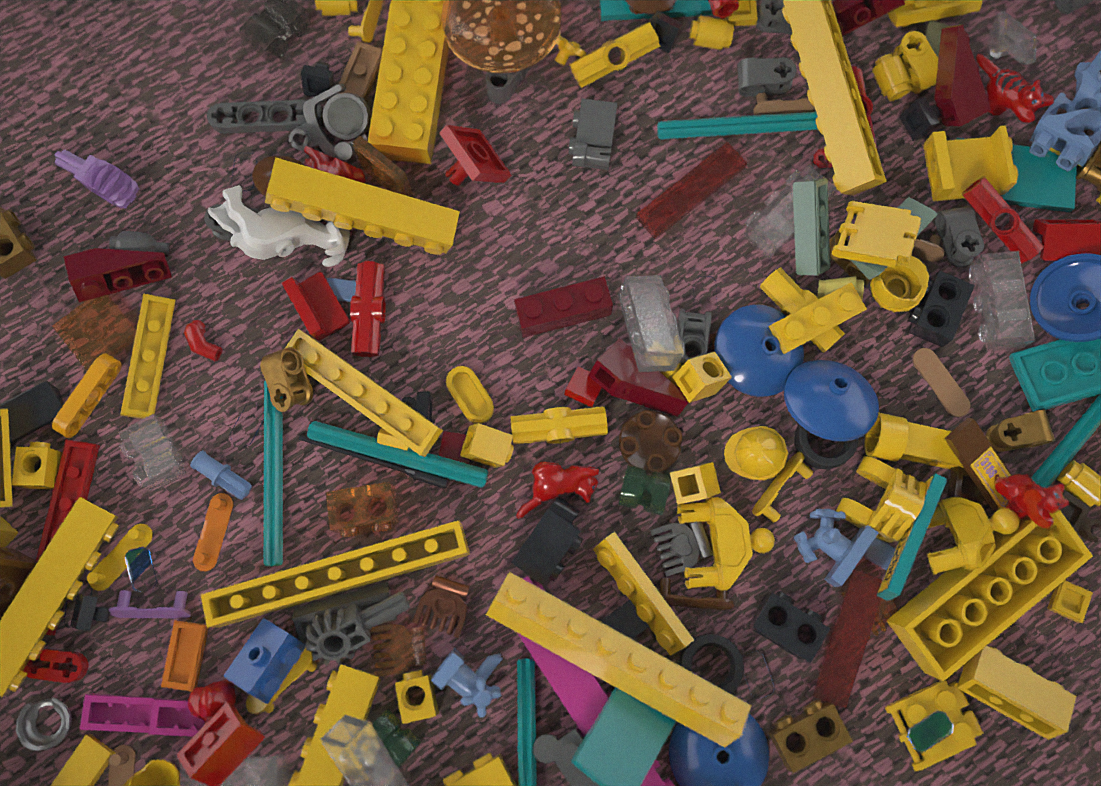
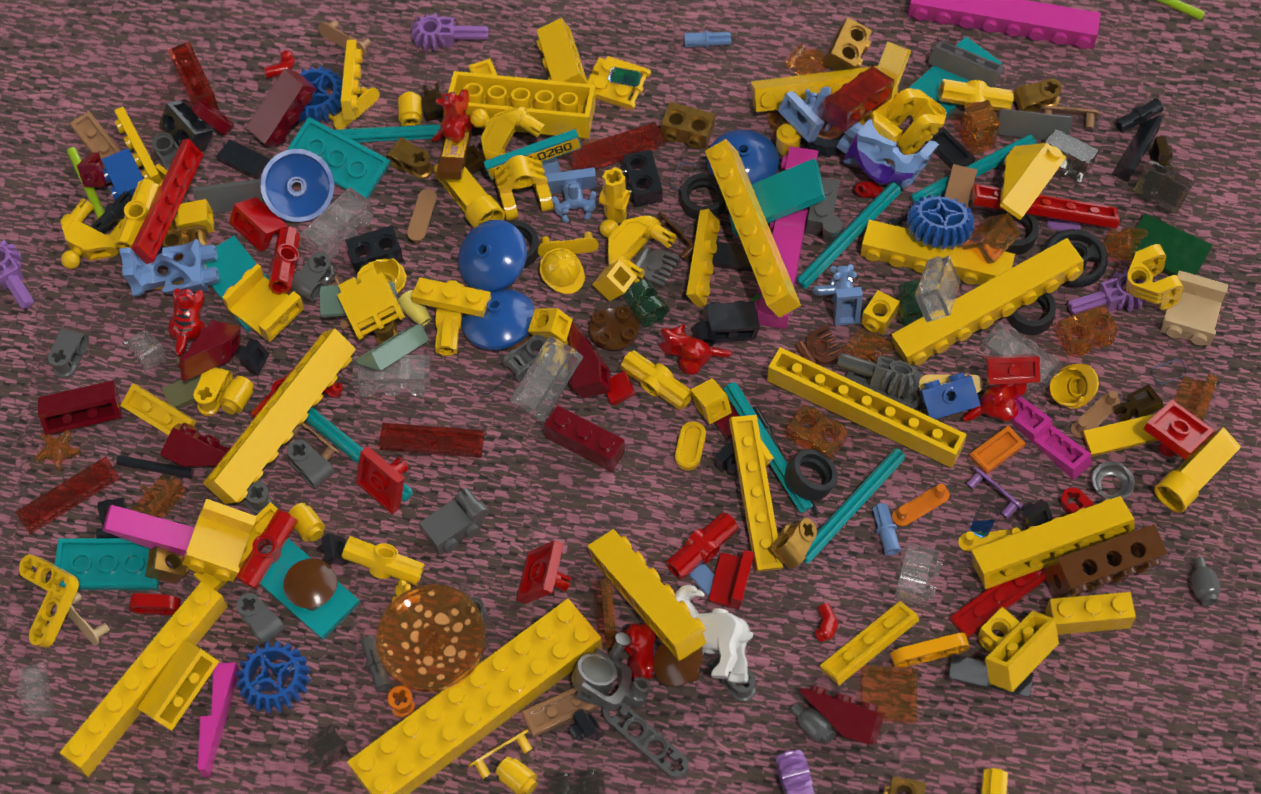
camera: 135 degrees left, 15 degrees down
(311, 473) = (801, 485): none -> black tyre
(688, 109) = (381, 479): none -> red tile
(784, 563) = (614, 195): none -> yellow piece

